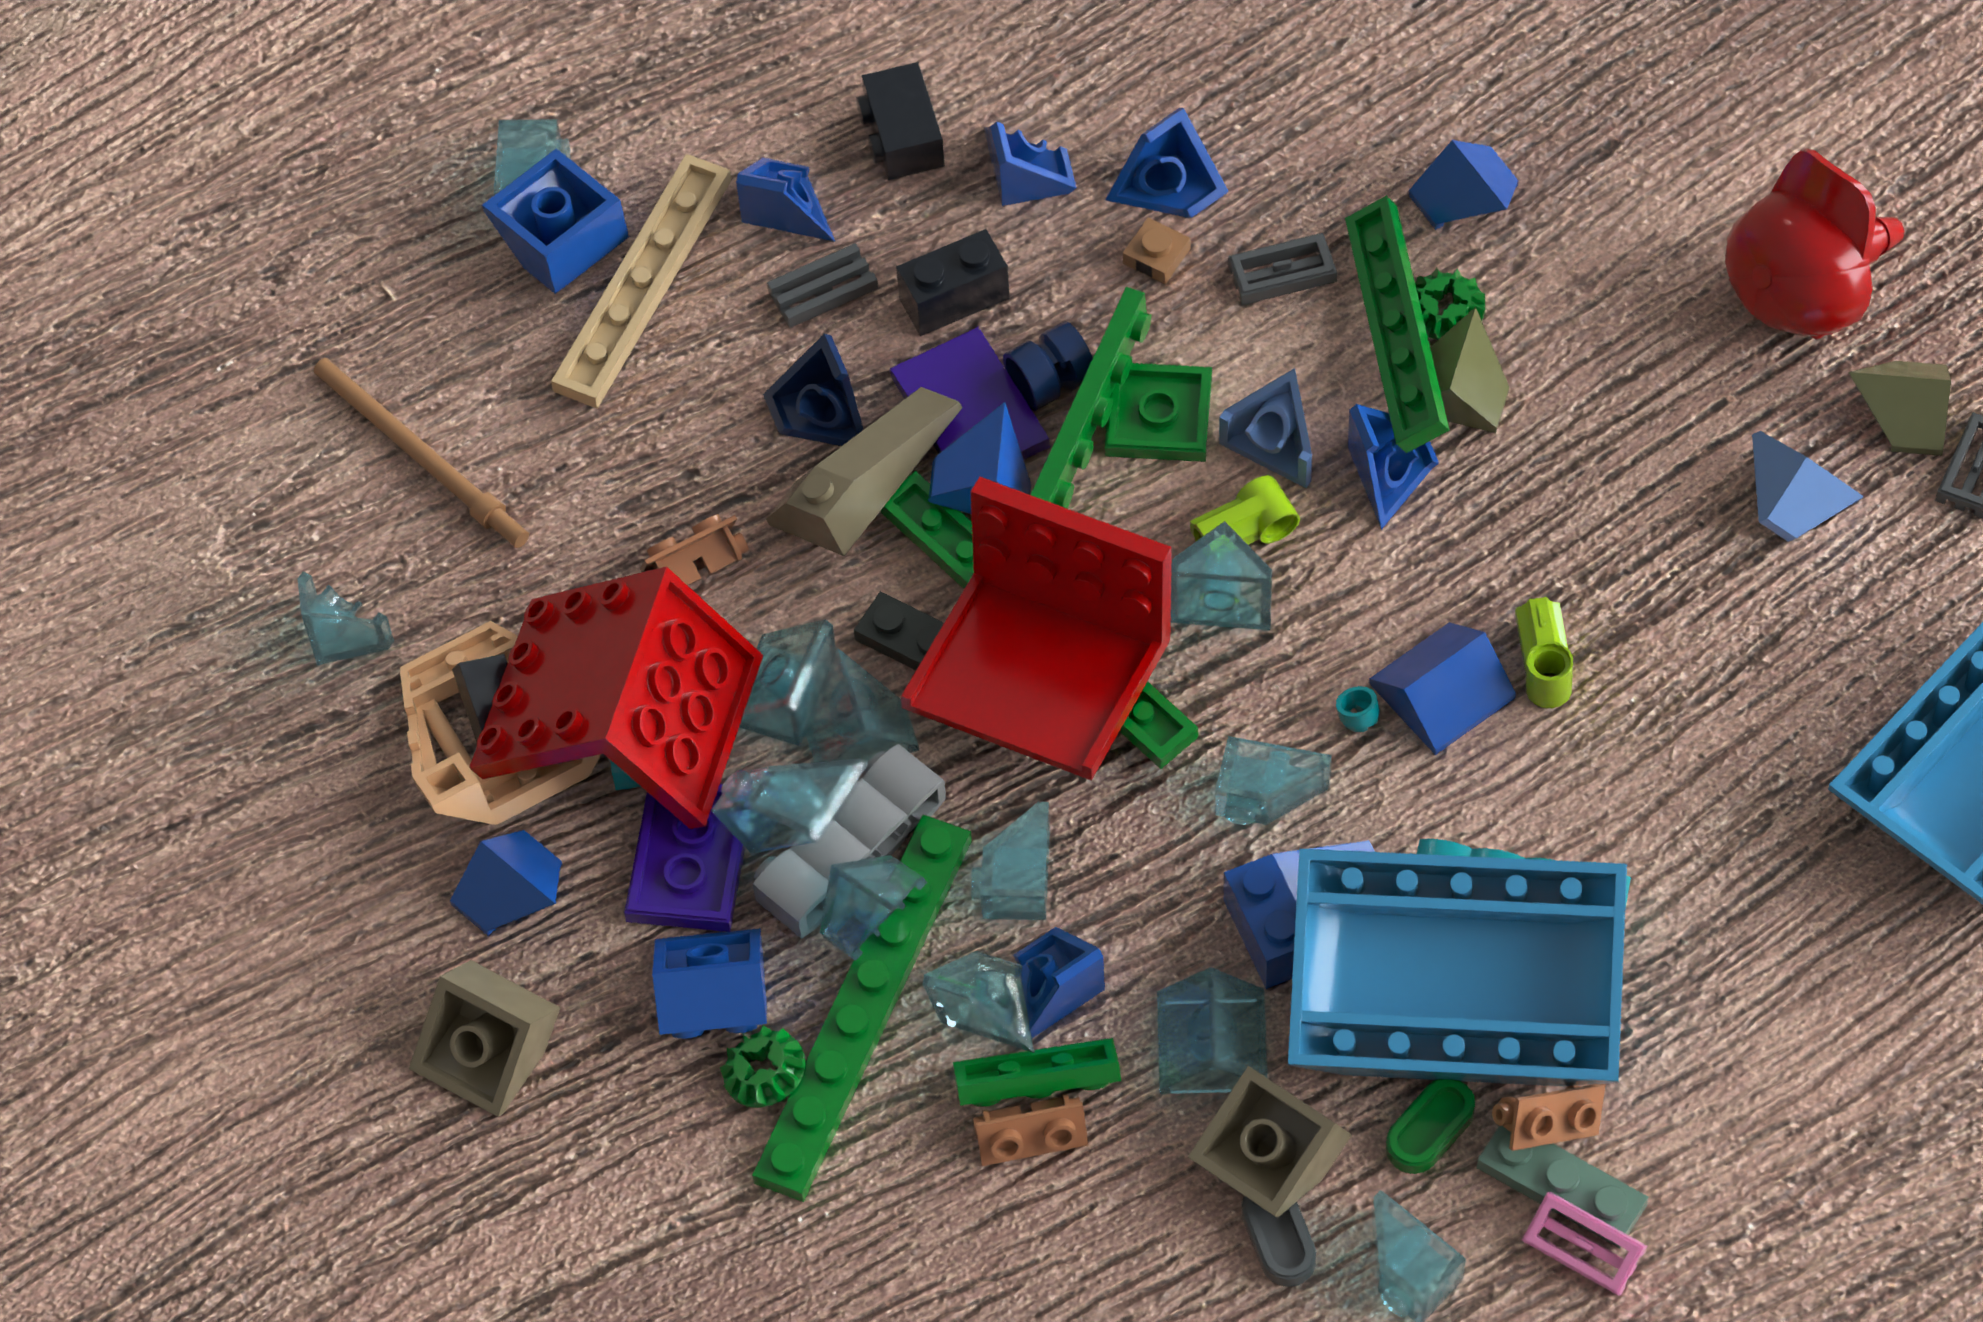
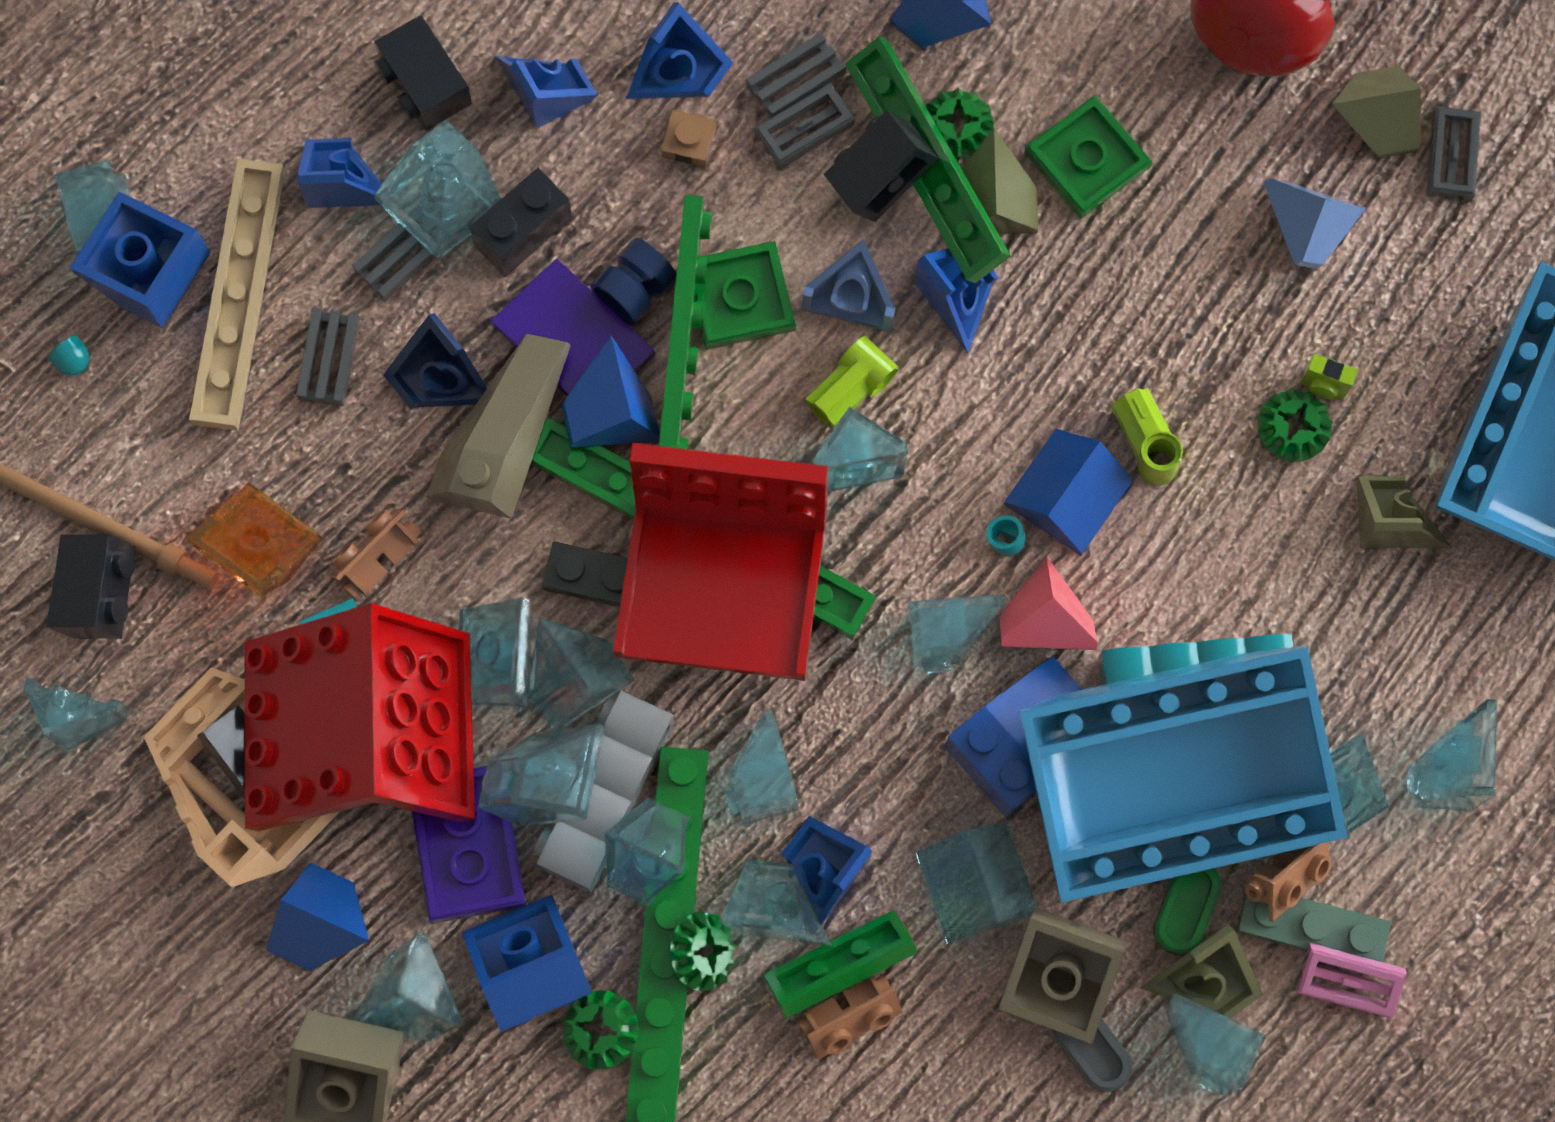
camera: 25 degrees left, 15 degrees up
(397, 508) = (91, 586): none -> black brick
(454, 295) = (70, 356): none -> teal hinge
(578, 512) = (255, 540): none -> clear orange slope
(584, 980) = (411, 994): none -> clear light blue slope
(729, 331) = (334, 320): none -> dark grey tile
(878, 226) = (439, 189): none -> clear light blue slope
(881, 1031) = (696, 932): none -> green gear
(1286, 212) = (787, 61): none -> dark grey tile
(1344, 316) = (880, 165): none -> black brick
(1377, 796) = (1046, 615): none -> coral slope
(1433, 1186) = (1211, 976): none -> olive slope
(1574, 371) = (1087, 157): none -> green tile
(1649, 1045) = (1357, 783): none -> clear light blue slope
(1710, 704) = (1274, 430): none -> green gear
(1761, 643) = (1328, 377): none -> lime plate
(1768, 1052) = (1460, 766): none -> clear light blue slope
(1790, 804) = (1393, 517): none -> olive slope

